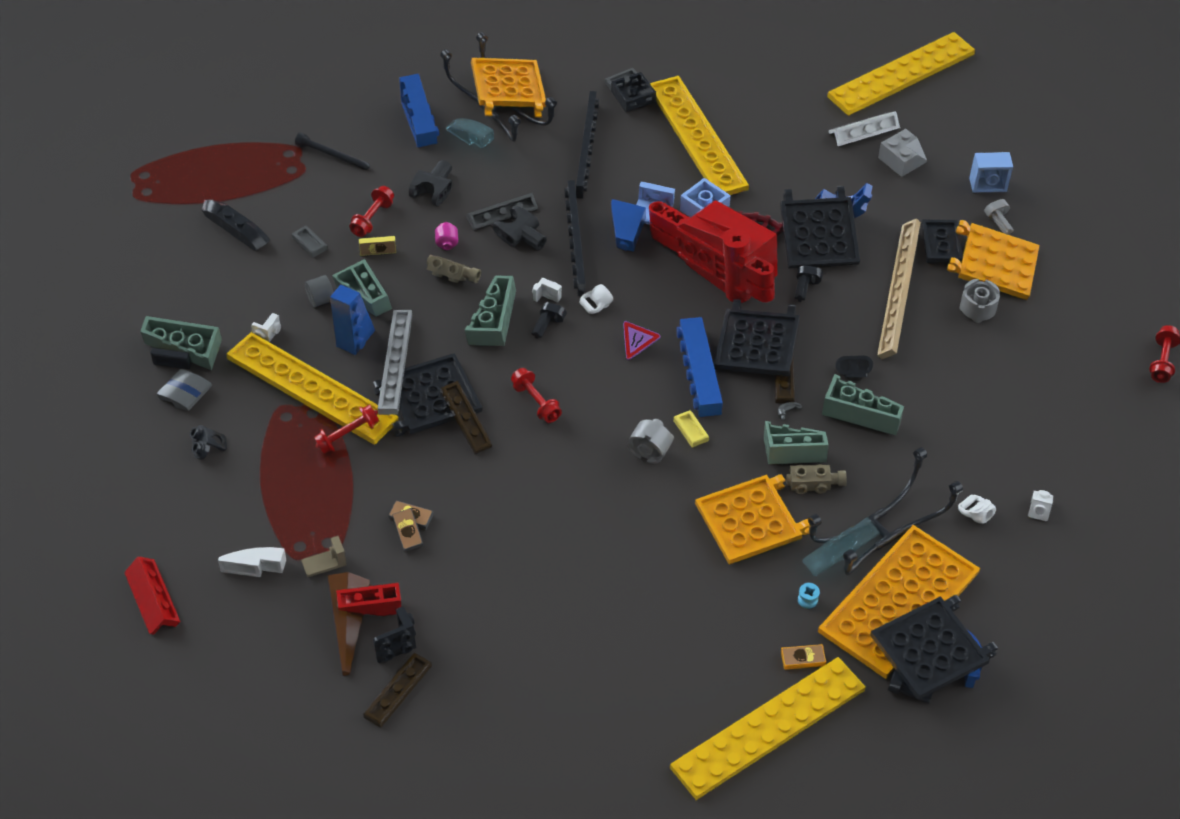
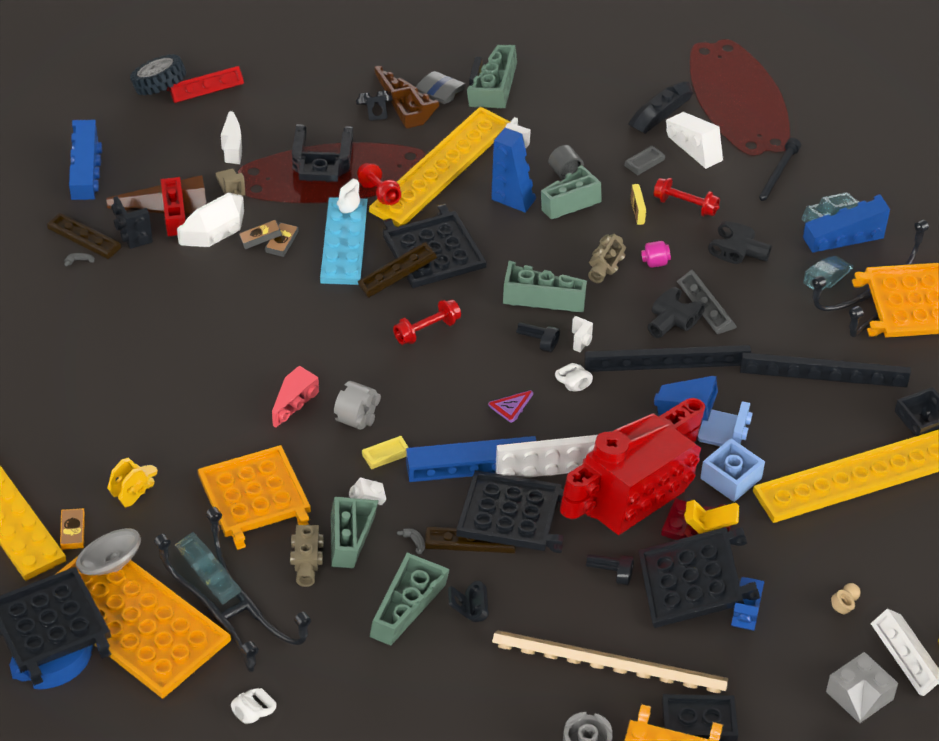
camera: 90 degrees right, 5 degrees down
(147, 645) = (158, 74): none -> black wheel
(212, 412) = (409, 104): none -> reddish brown wedge
(287, 693) = (84, 160): none -> blue wedge
(288, 199) = (696, 137): none -> white wedge
(311, 480) = (321, 165): none -> black plate
(371, 449) = (349, 197): none -> white piece
(389, 564) = (212, 222): none -> white wedge
(390, 124) = (829, 205): none -> clear light blue slope
(395, 362) = (468, 214): light grey plate -> none
(413, 465) = (343, 244): none -> medium azure plate
(430, 692) = (78, 256): none -> dark grey piece
(629, 494) = (295, 392): none -> coral slope
(702, 303) = (543, 457): none -> white plate
(744, 439) = (368, 490): none -> white bracket
(753, 605) = (132, 481): none -> yellow hinge
(763, 209) = (711, 519): none -> yellow bracket
(806, 600) = (147, 541): medium azure wheel -> none
(824, 156) = (844, 600): none -> tan plate
(844, 594) = (109, 552): none -> light grey dish

